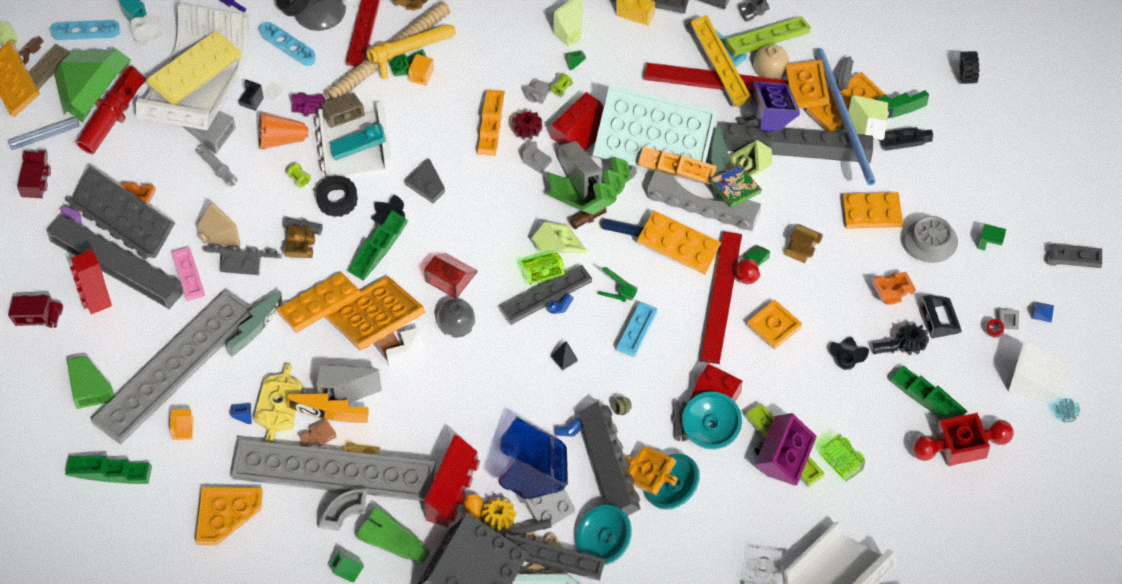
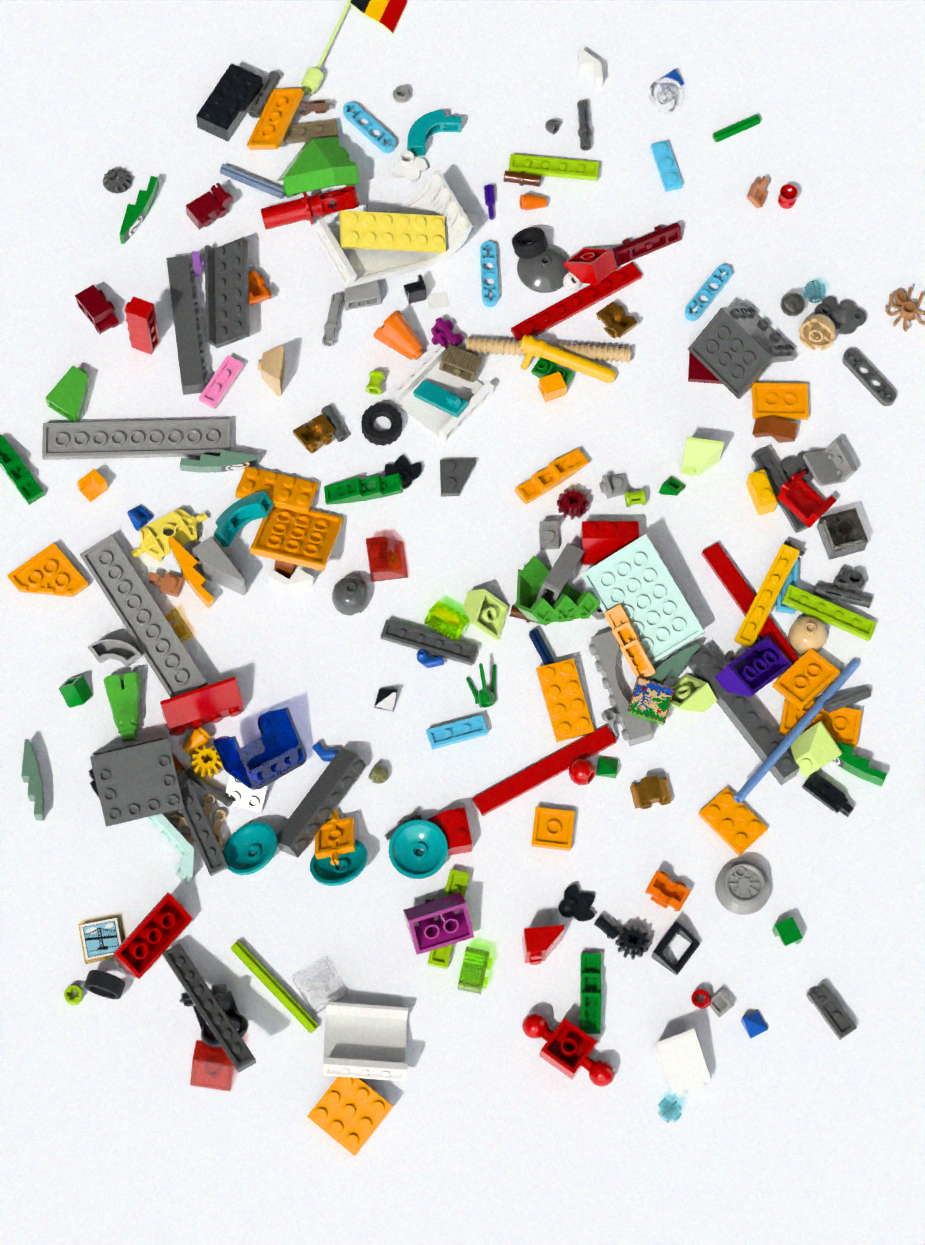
camera: 45 degrees right, 10 degrees up
(239, 261) = (264, 407): dark grey bracket -> none
(315, 335) = (239, 514): none -> teal arch
(720, 224) = (611, 722): none -> light grey hand
(761, 21) = (819, 590): none -> dark grey pin
(862, 395) = (540, 942): none -> red slope

